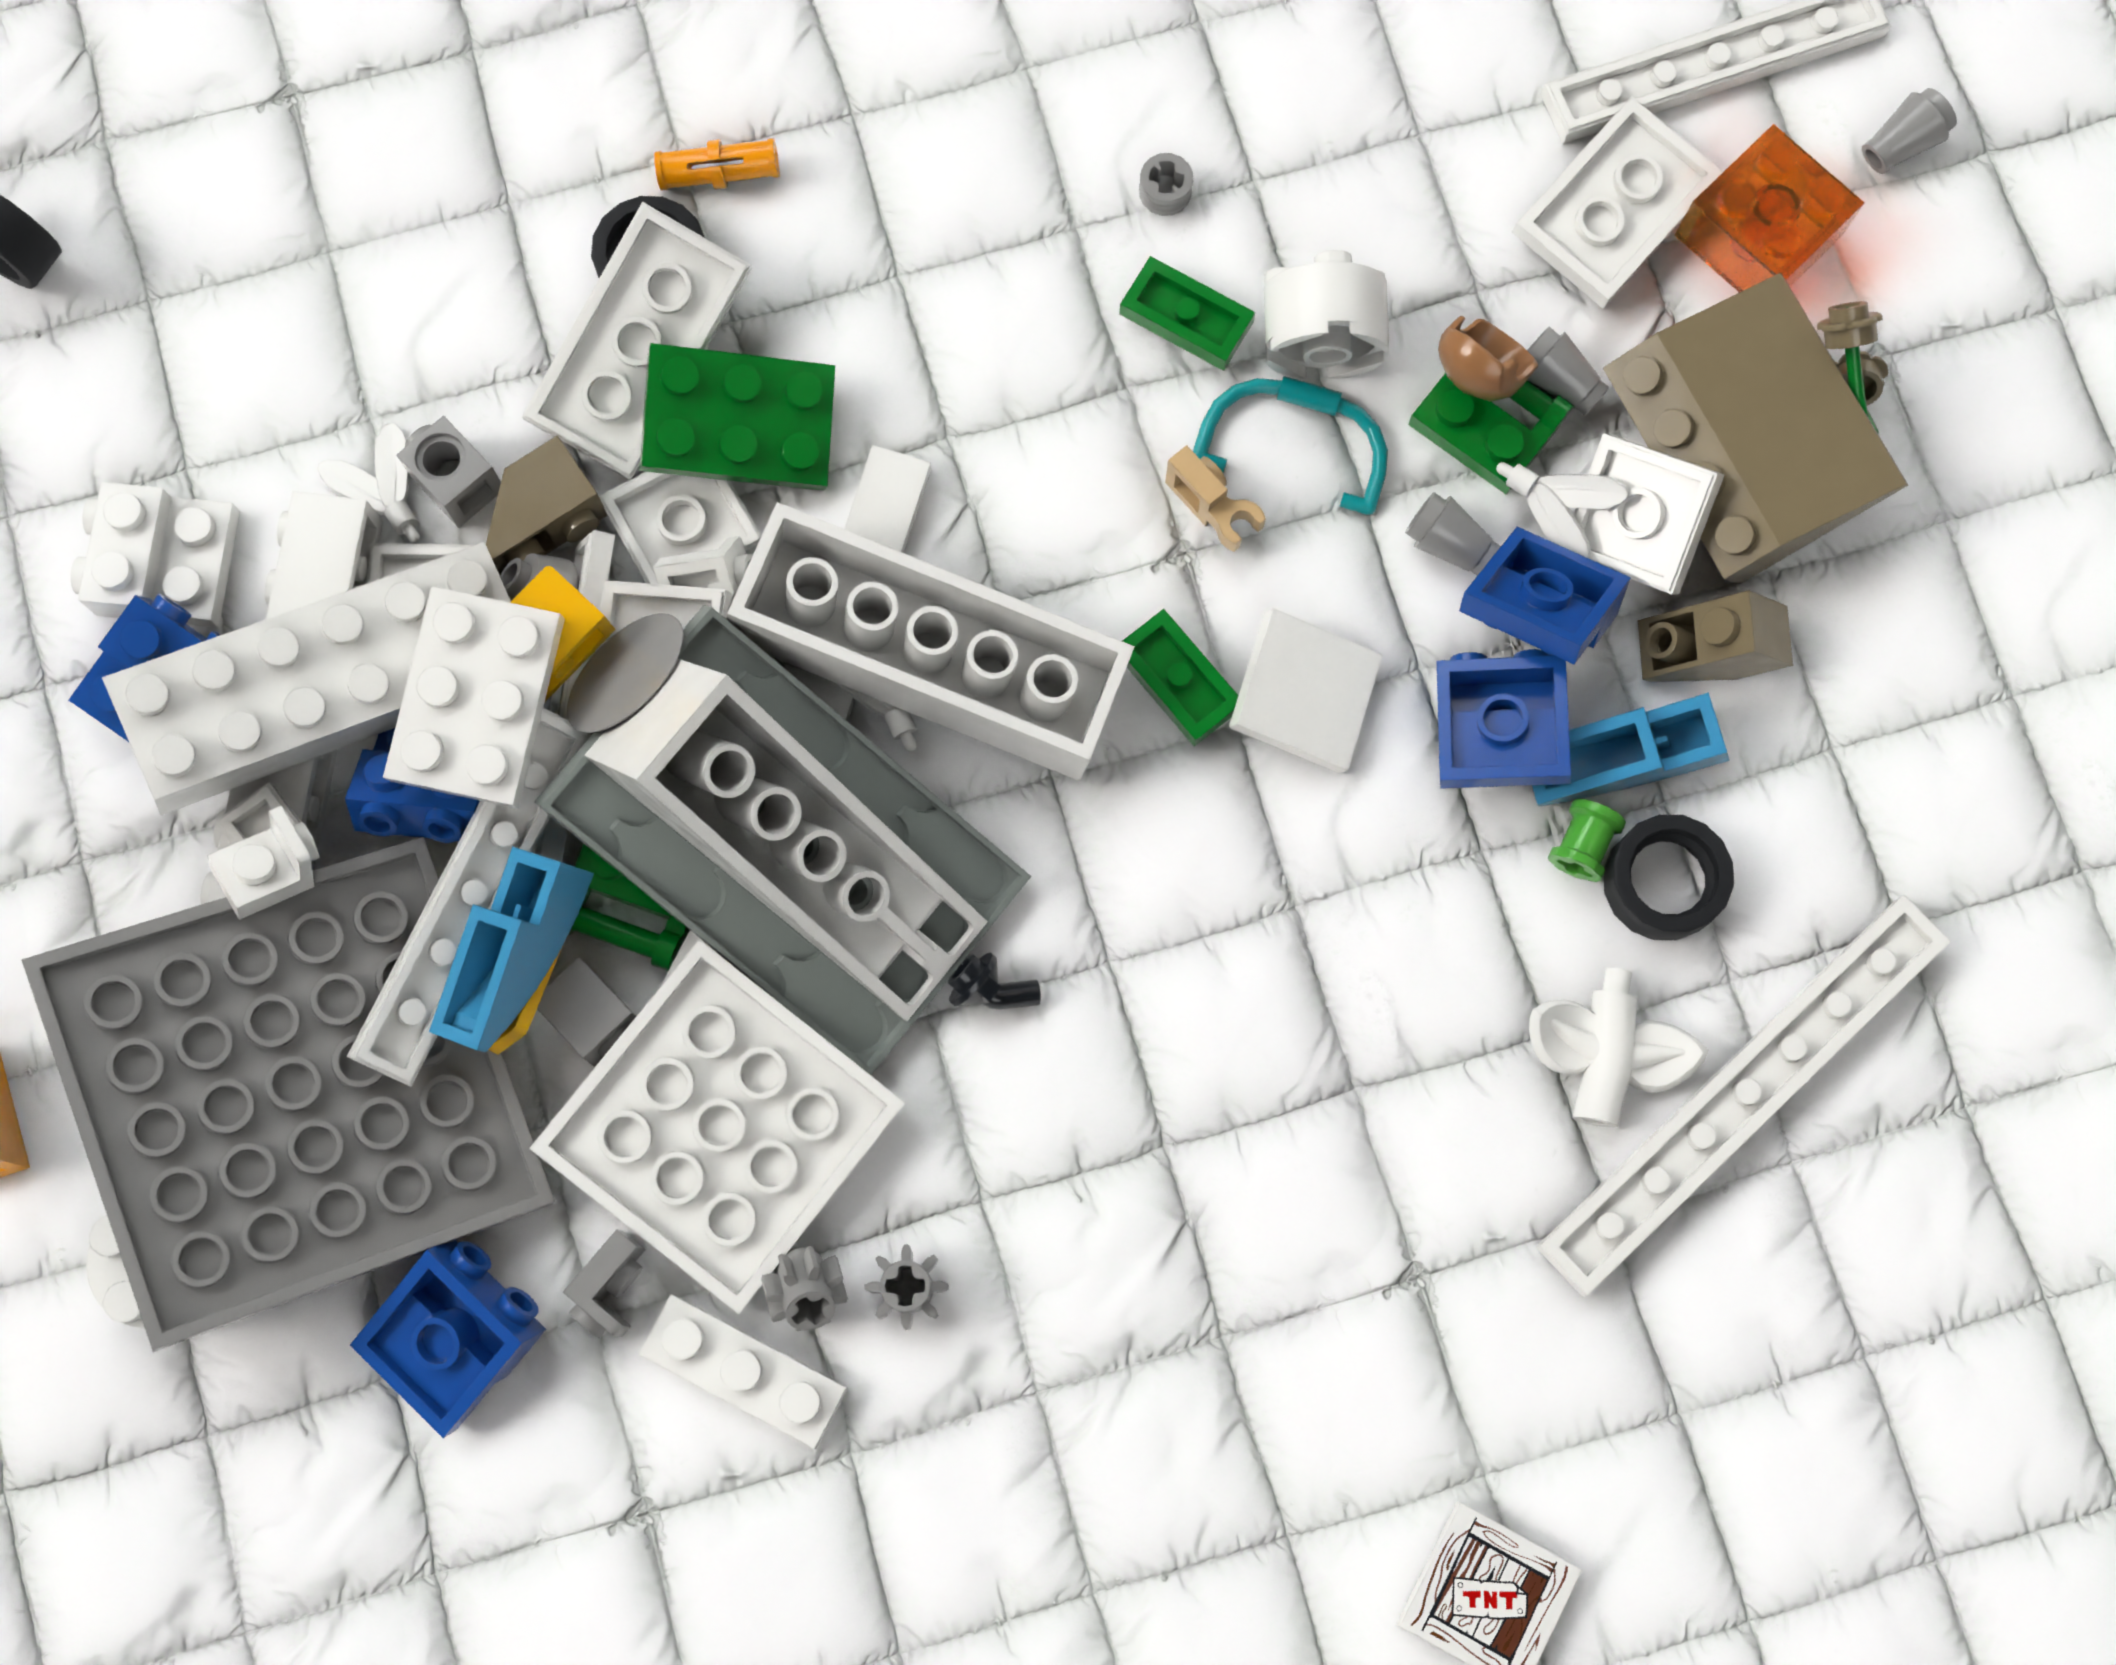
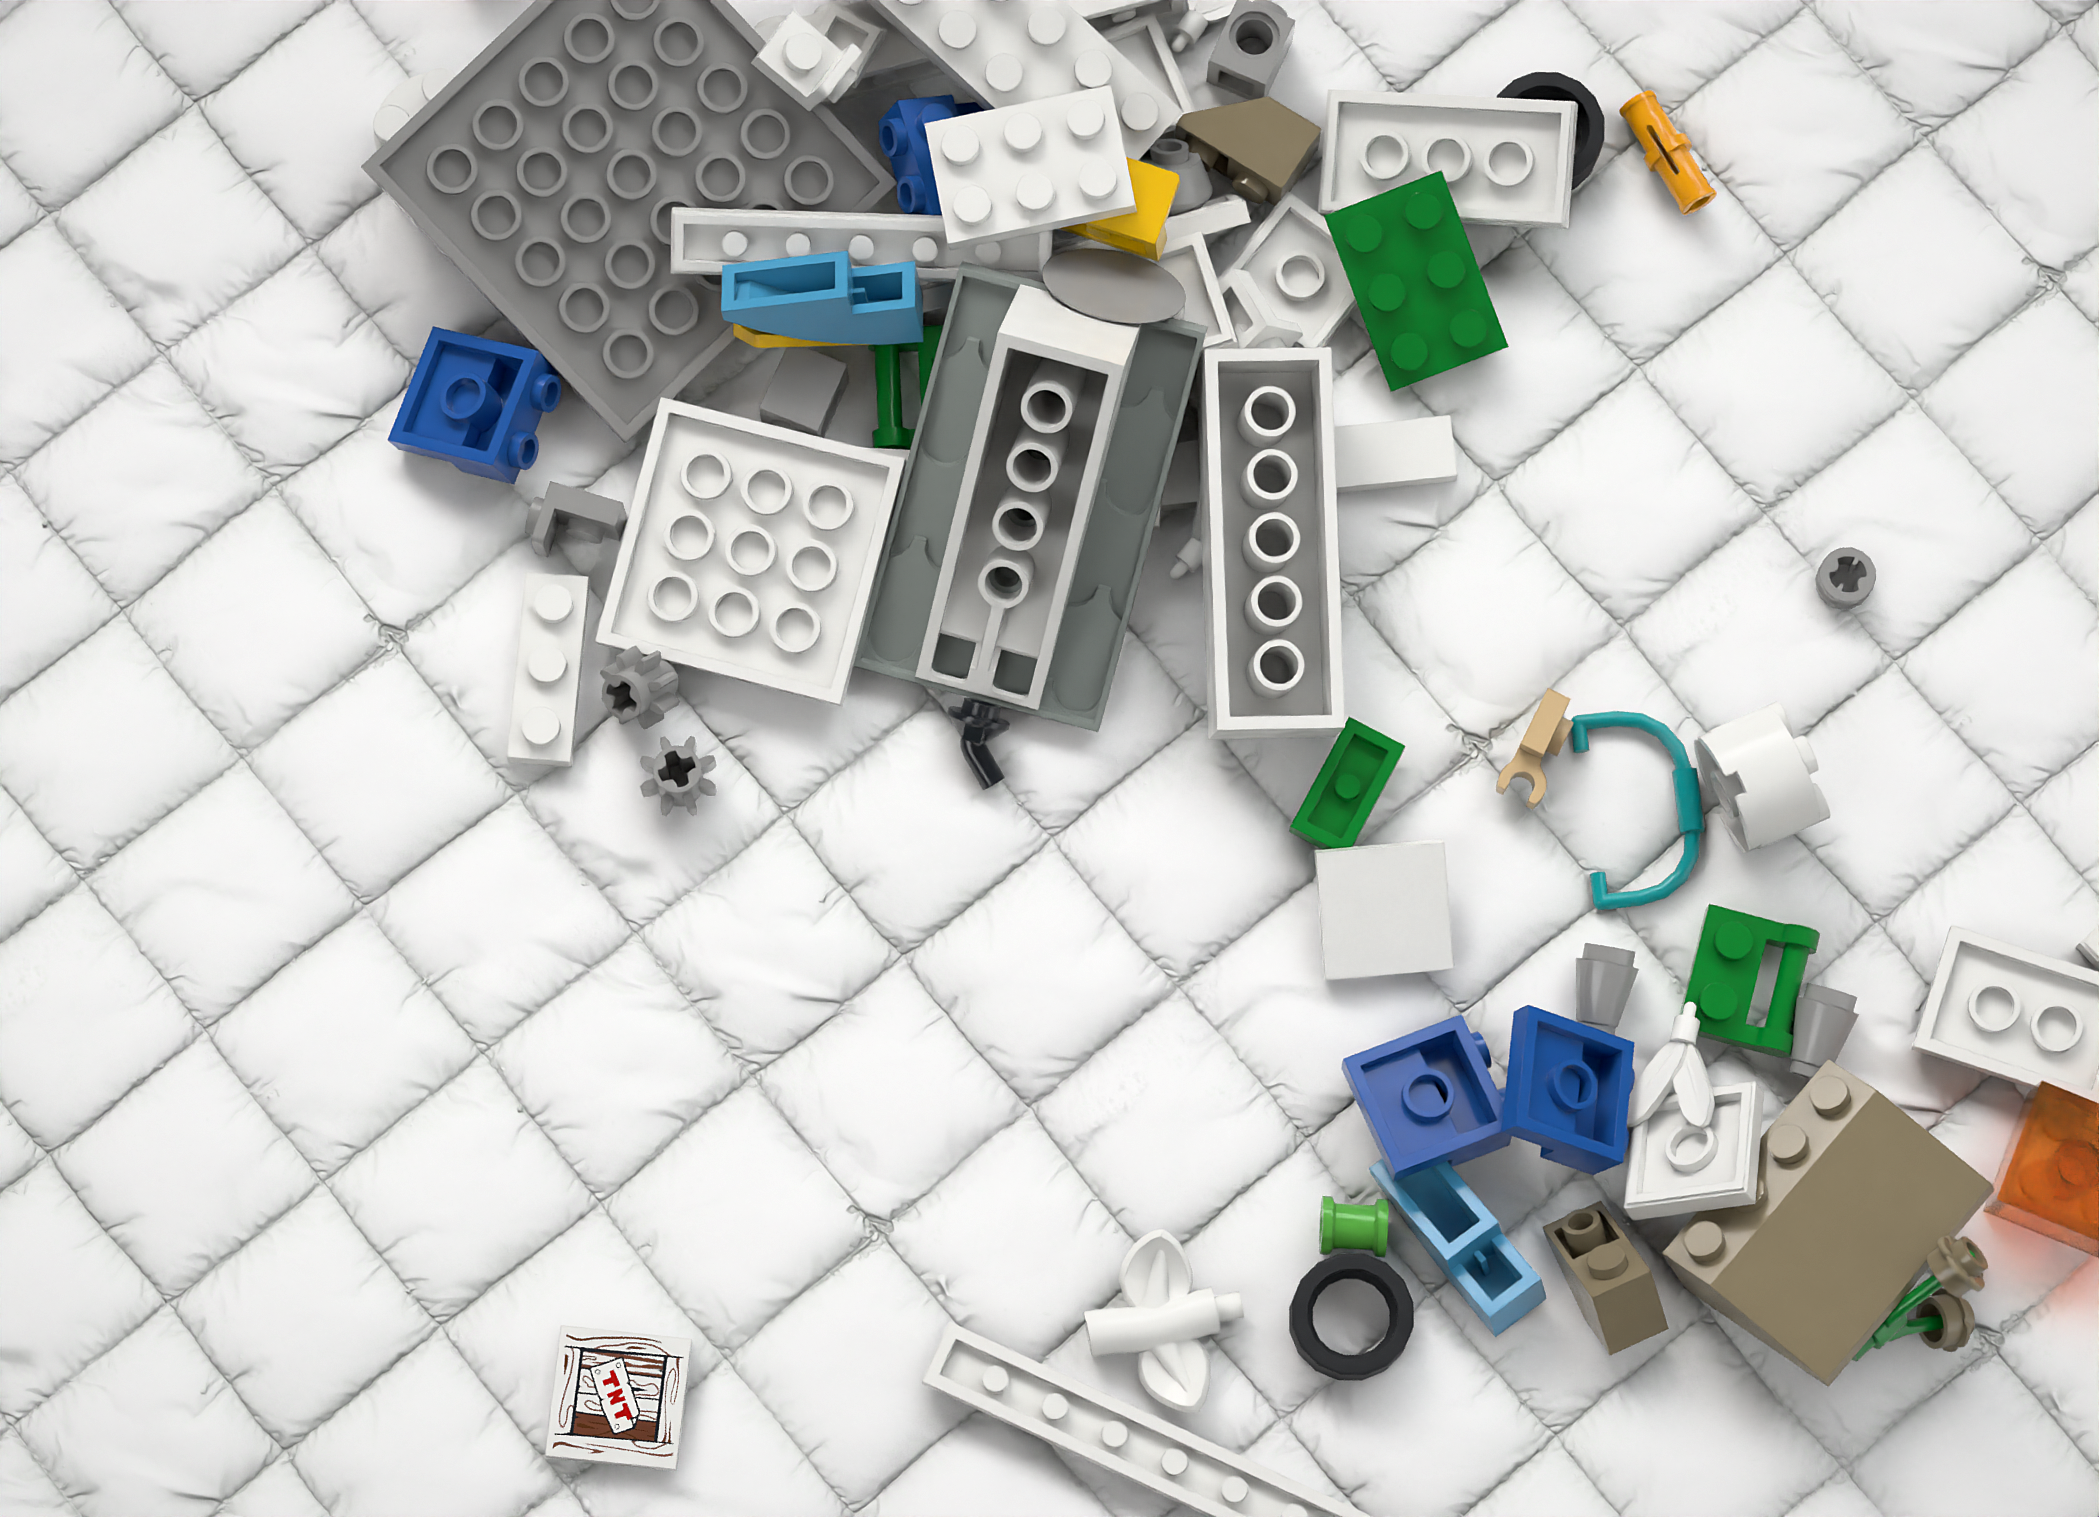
camera: 65 degrees right, 0 degrees up
(1187, 313) = (1716, 650): green plate -> none
(1484, 360) = (1783, 941): medium nougat hair -> none

